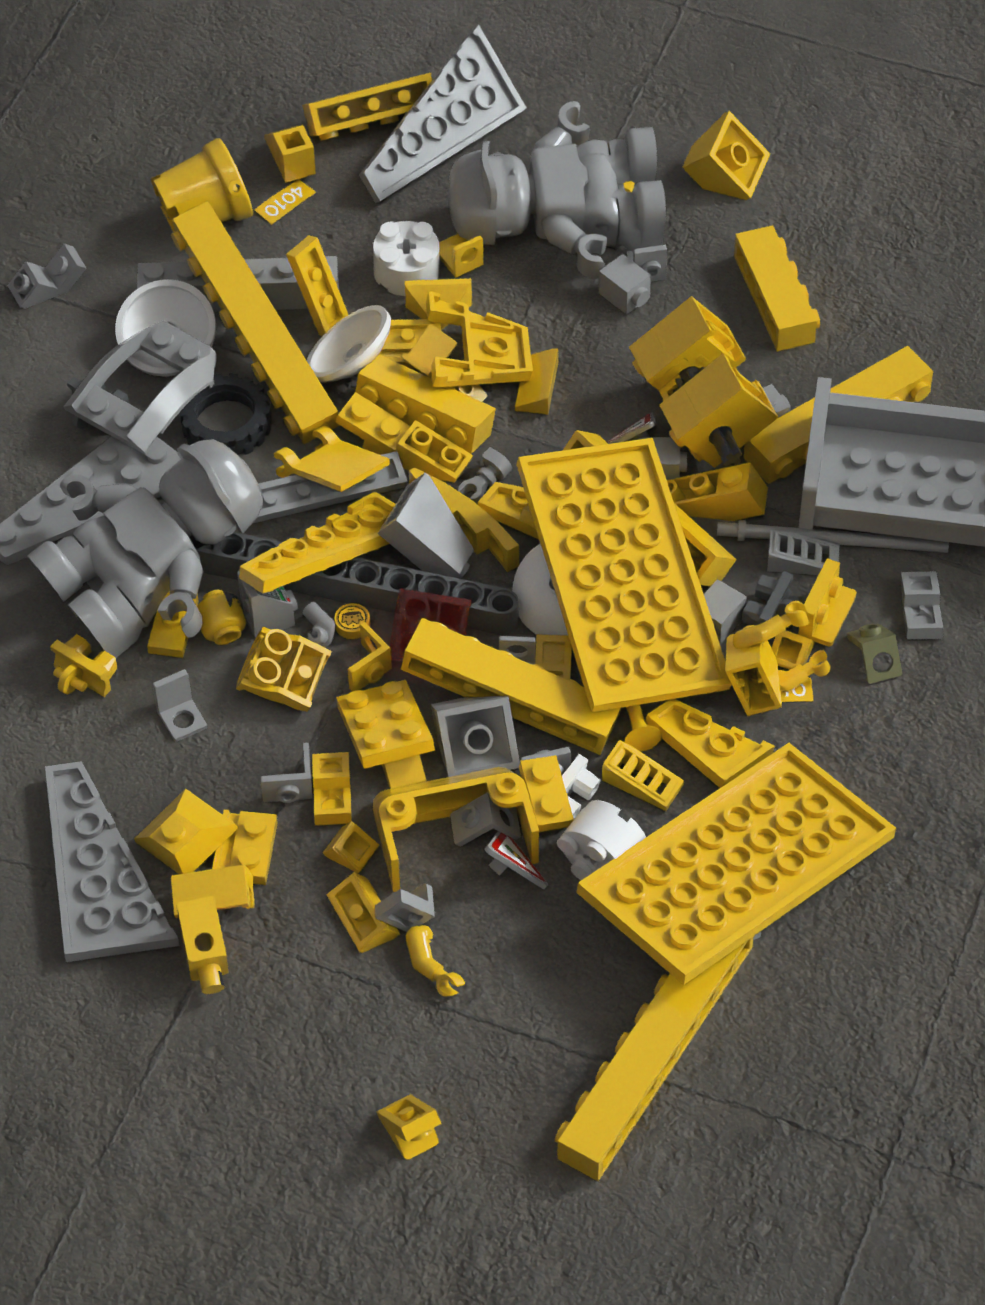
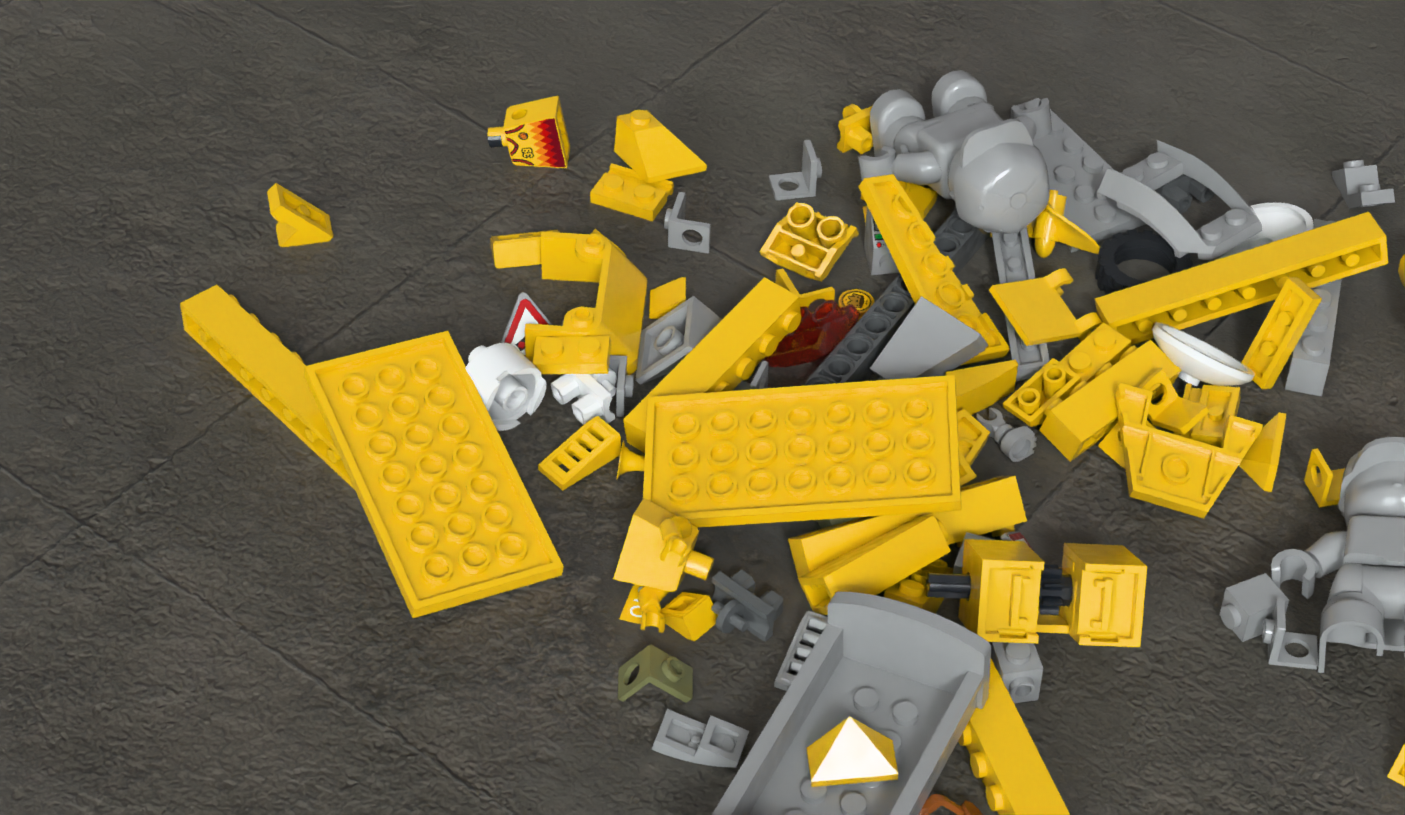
camera: 105 degrees right, 10 degrees down
(99, 883) = (597, 97): light grey wing -> none
(229, 885) = (587, 150): yellow hinge -> none
(323, 625) = (844, 281): light grey arm -> none
(331, 788) = (678, 256): yellow slope -> none
(385, 723) = (708, 278): yellow plate -> none
(405, 253) = (1333, 425): white brick -> none
(406, 908) = (505, 252): light grey bracket -> none
(421, 958) = (477, 264): yellow arm -> none
(536, 393) = (1125, 510): yellow slope -> none
(708, 746) = (591, 511): yellow wing -> none
(724, 511) = (878, 562): none -> yellow slope
(725, 608) = (756, 555): light grey brick -> none
(776, 288) = (1217, 742): yellow brick -> none
(827, 605) = (725, 642): yellow bracket -> none
(930, 475) = (851, 755): none -> slope

